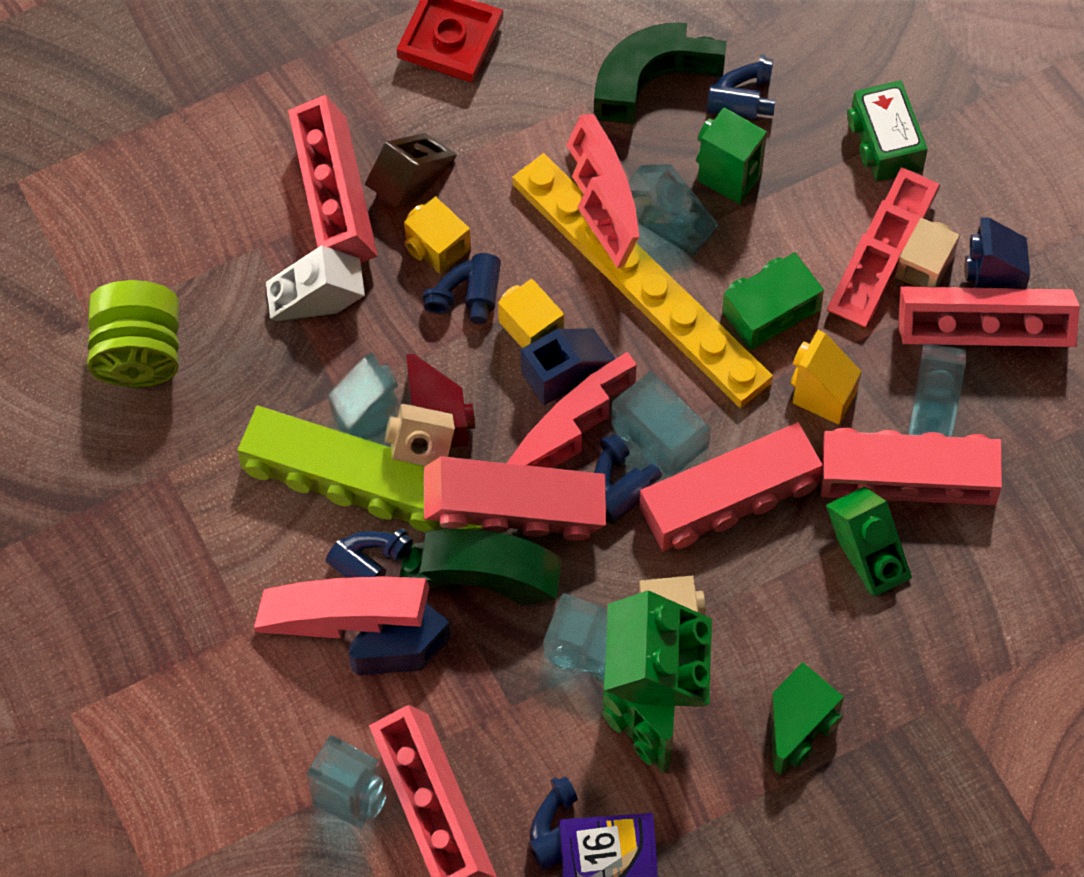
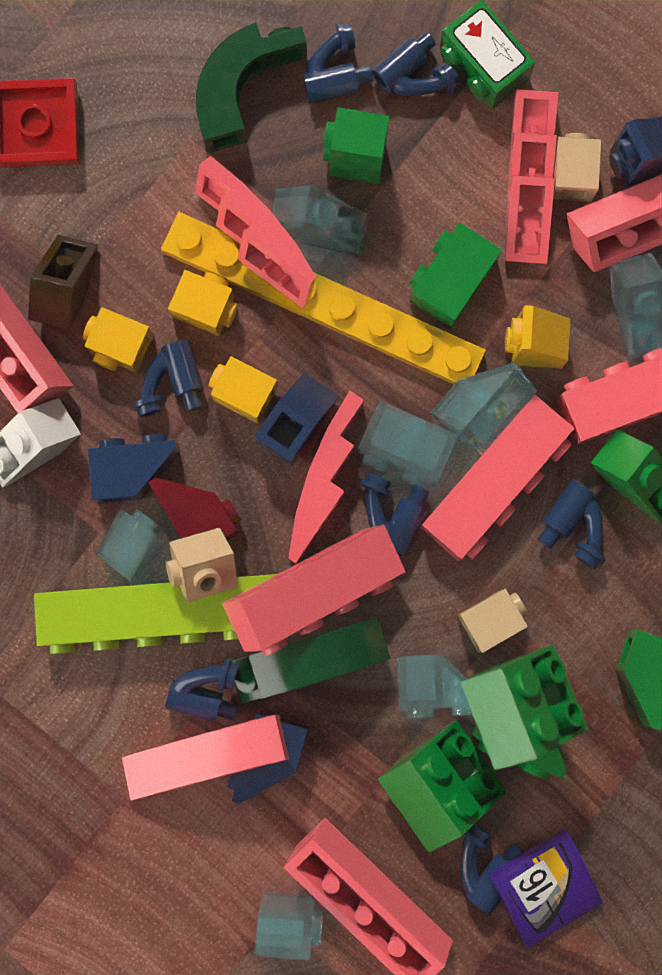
camera: 25 degrees left, 20 degrees up
(394, 337) = (123, 470): none -> dark blue slope
(529, 234) = (204, 302): none -> yellow brick
(552, 731) = (442, 787): none -> green slope
(748, 413) = (484, 405): none -> clear light blue slope
(792, 541) = (565, 515): none -> dark blue plant
(804, 111) = (396, 69): none -> dark blue plant

